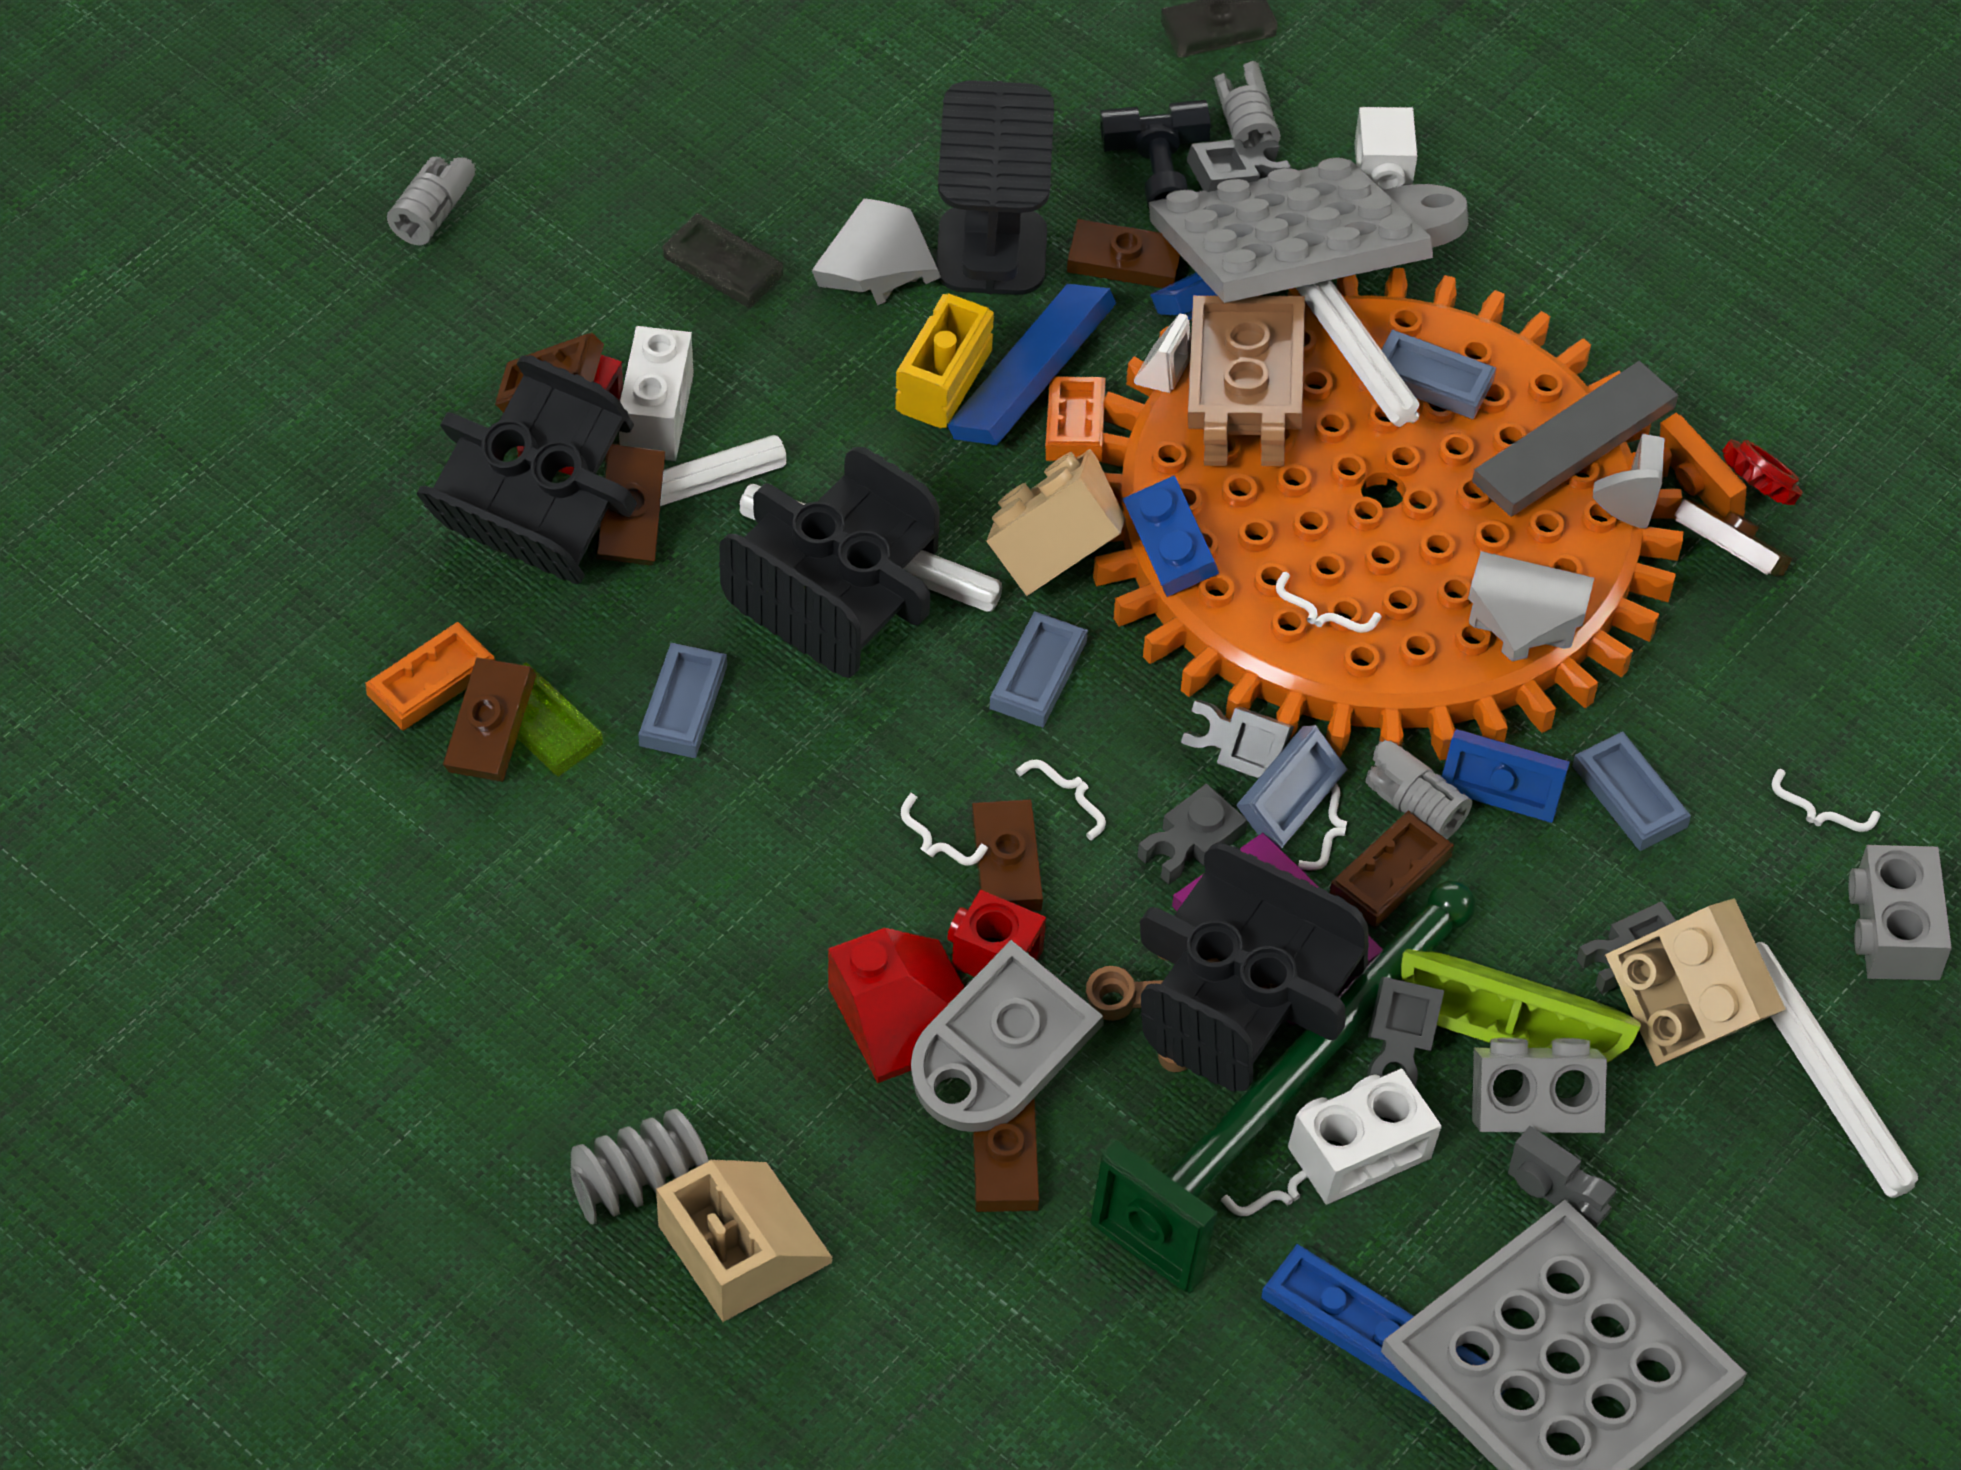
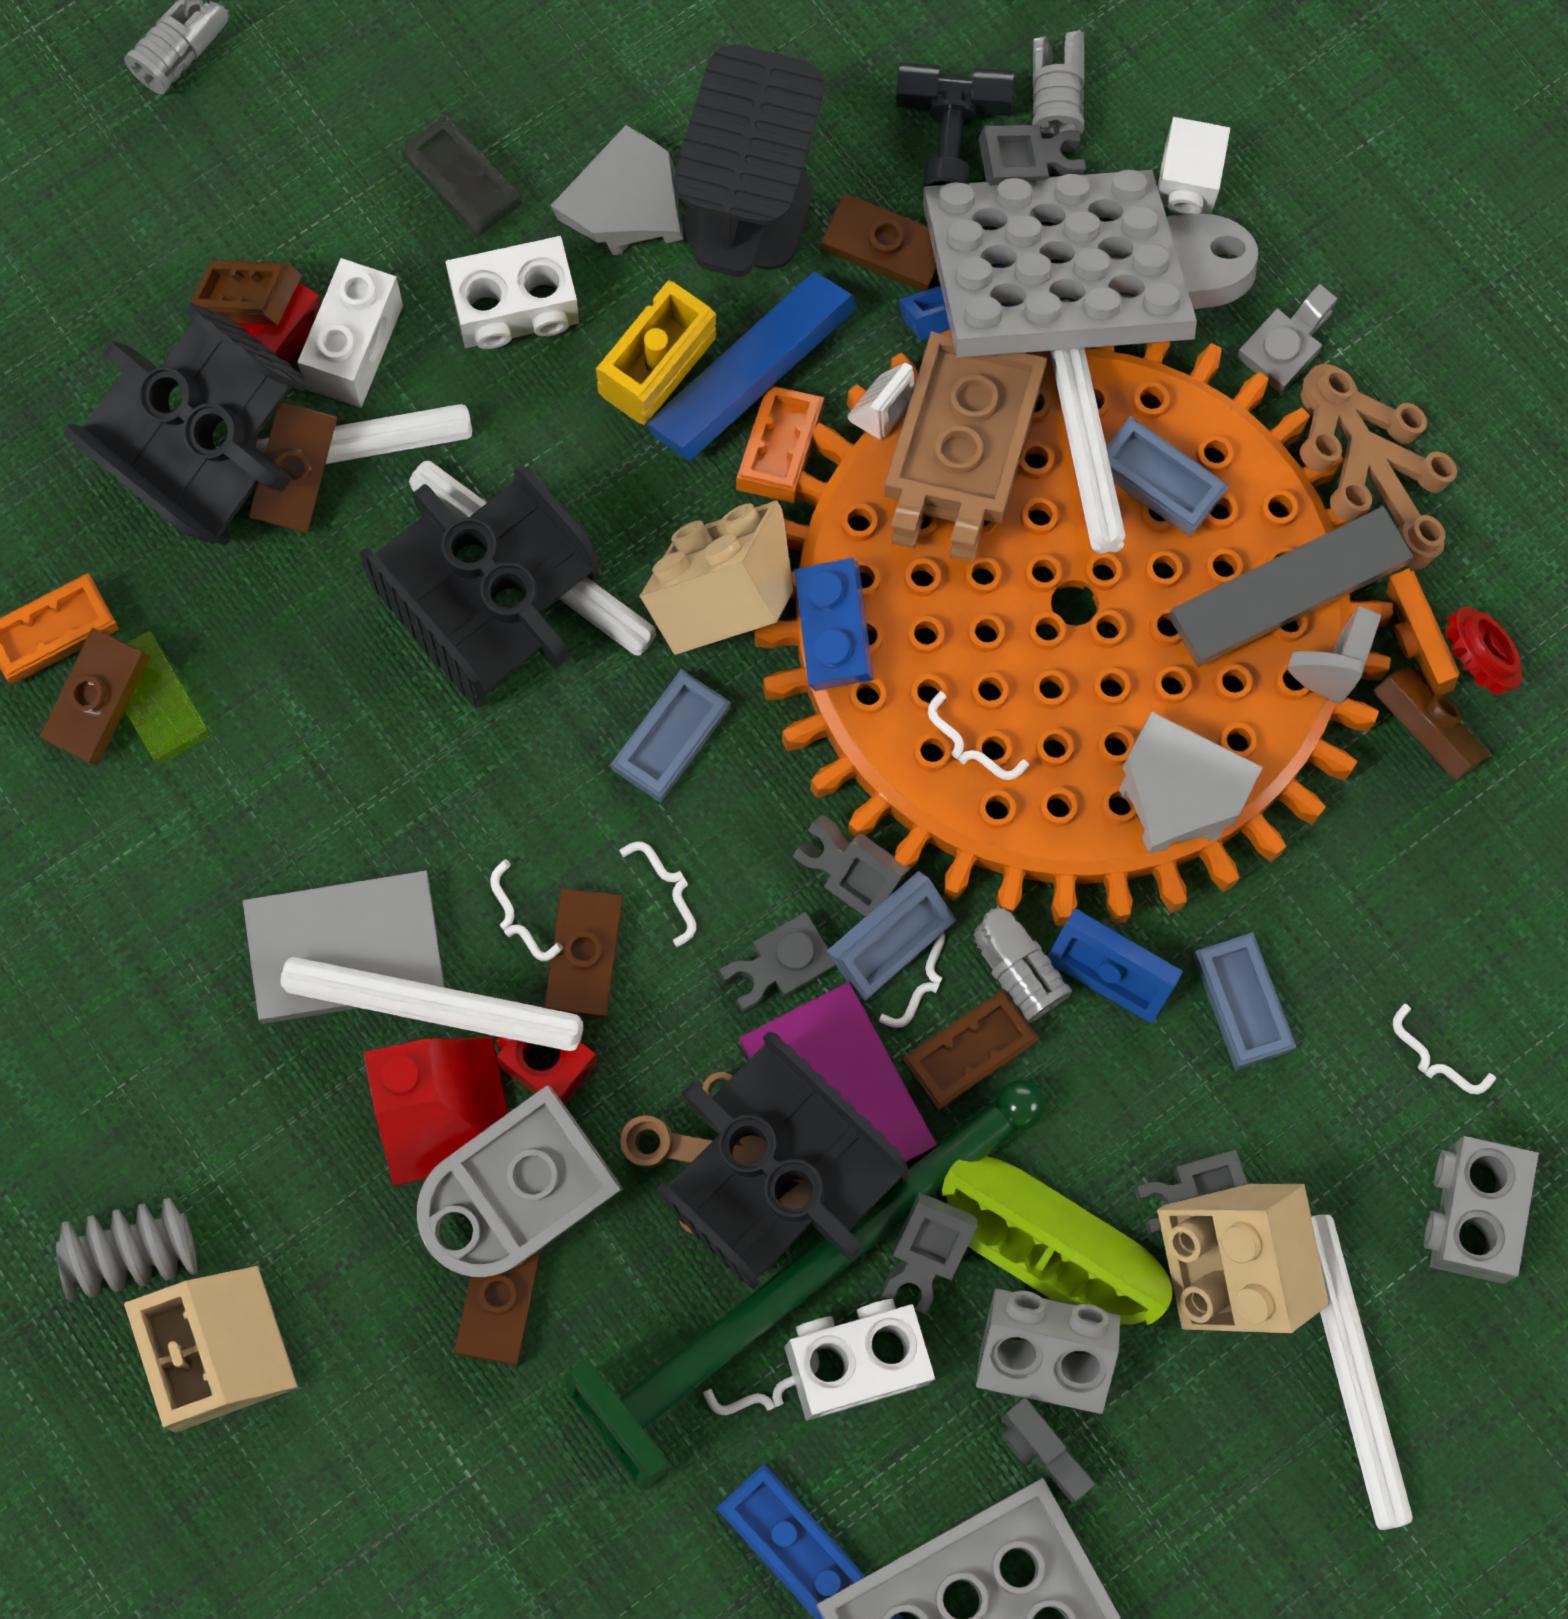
camera: 10 degrees right, 20 degrees up
(683, 700) = (300, 703): sand blue tile -> none
(778, 889) = (359, 925): none -> light grey tile
(796, 340) = (509, 277): none -> white brick
(880, 901) = (432, 1003): none -> white axle
(1514, 270) = (1286, 345): none -> light grey plate
(1615, 346) = (1335, 400): none -> medium nougat plant

